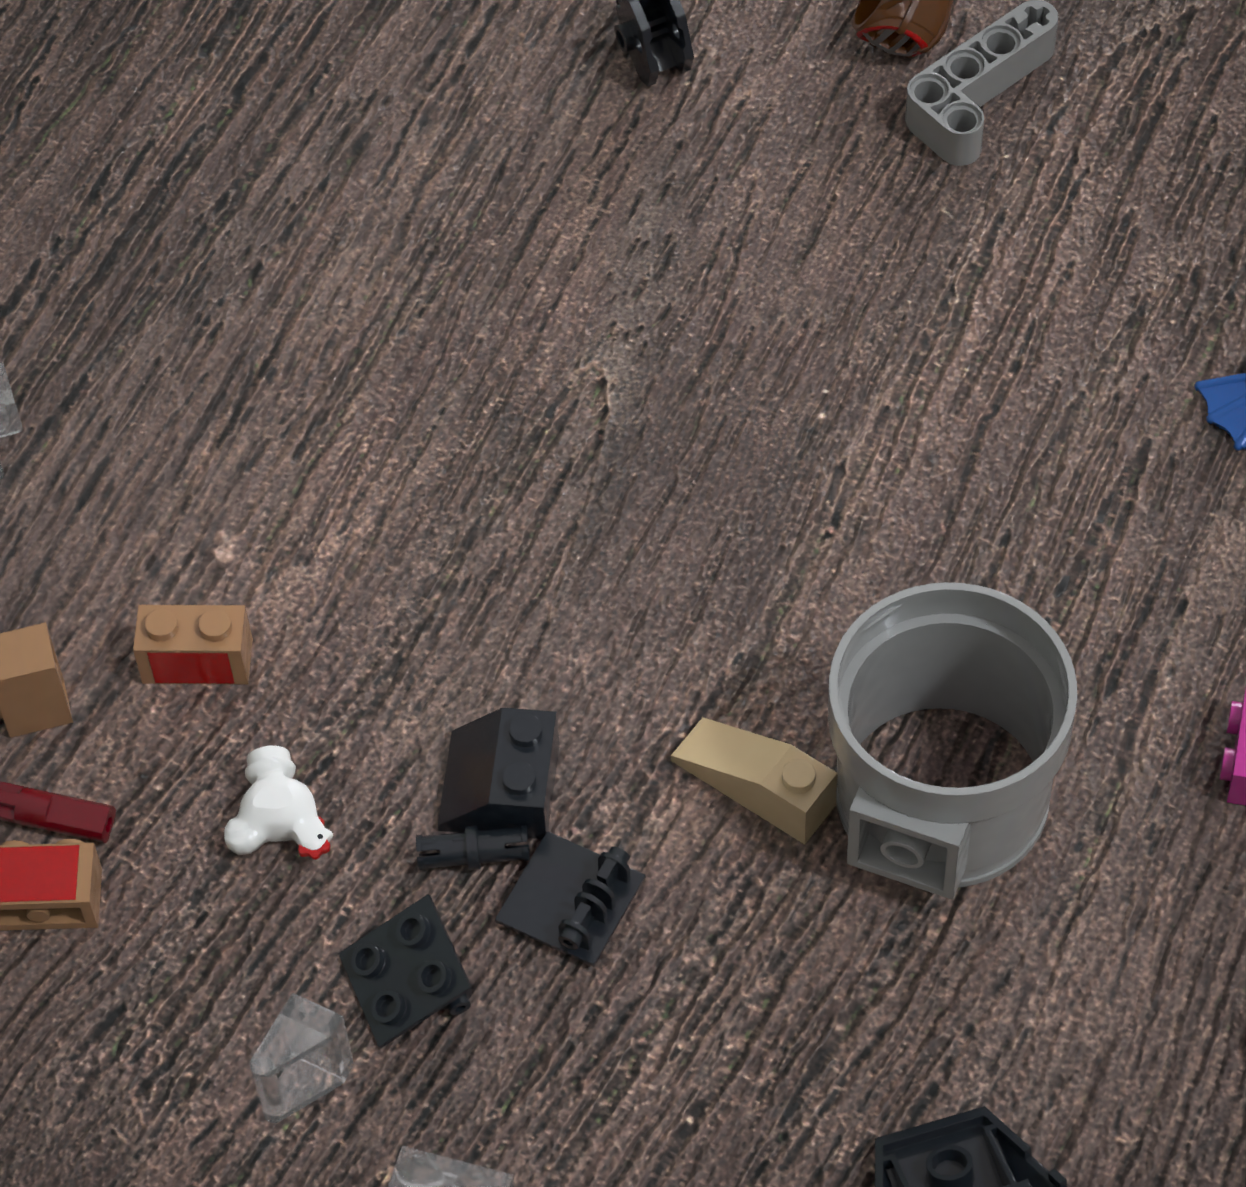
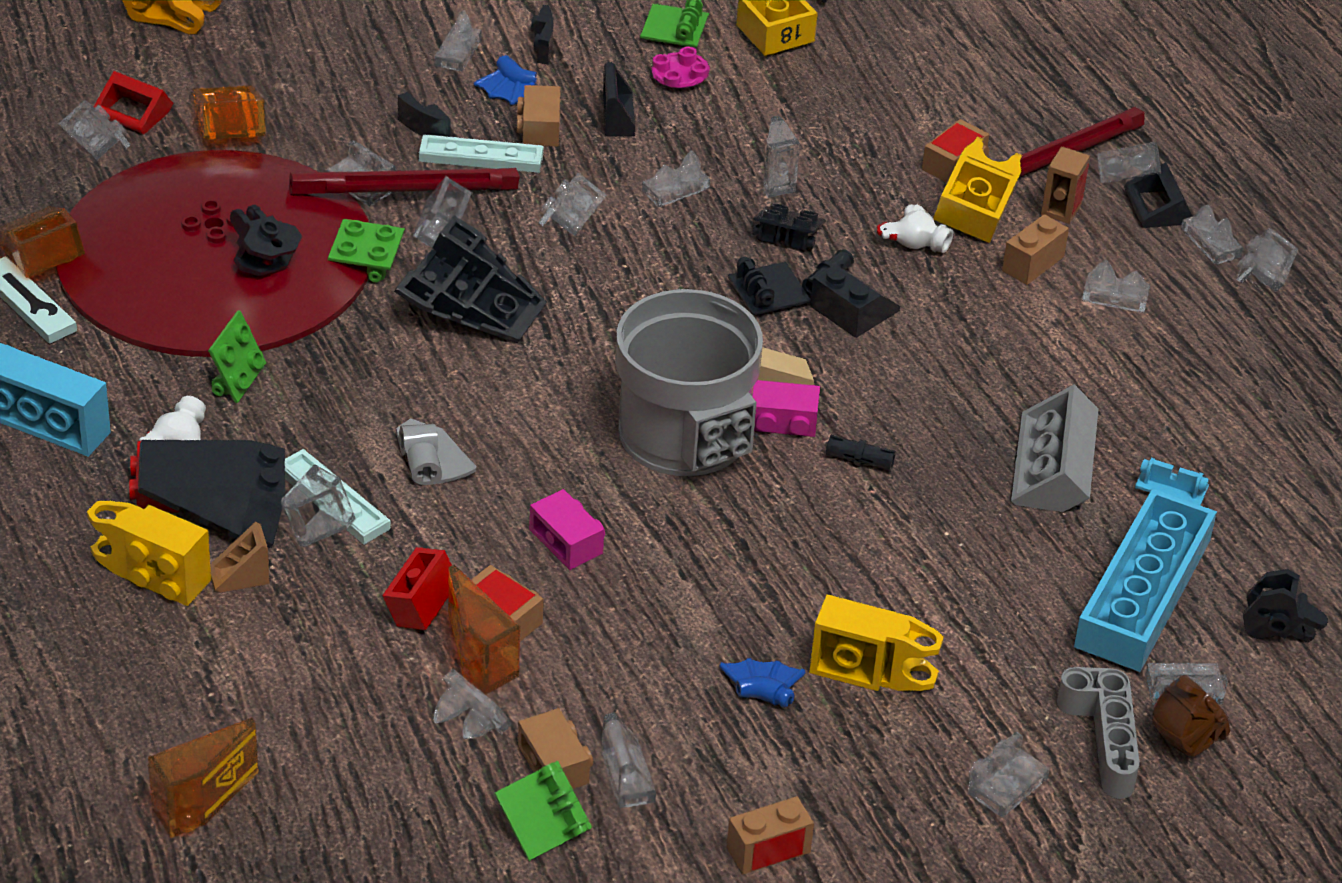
camera: 125 degrees right, 15 degrees down
(133, 768) = (978, 192): none -> yellow brick
(182, 527) = (1107, 290): none -> clear tile
(515, 252) = (1159, 476): none -> medium azure hinge
(587, 382) = (1056, 452): none -> light grey slope
(728, 162) = (1145, 580): none -> medium azure brick
(790, 571) = (860, 452): none -> black pin
(794, 686) = (786, 408): none -> dark pink brick
(834, 64) = (1204, 674): none -> clear bracket
(1128, 313) = (871, 646): none -> yellow brick
(1140, 121) = (1006, 776): none -> clear bracket

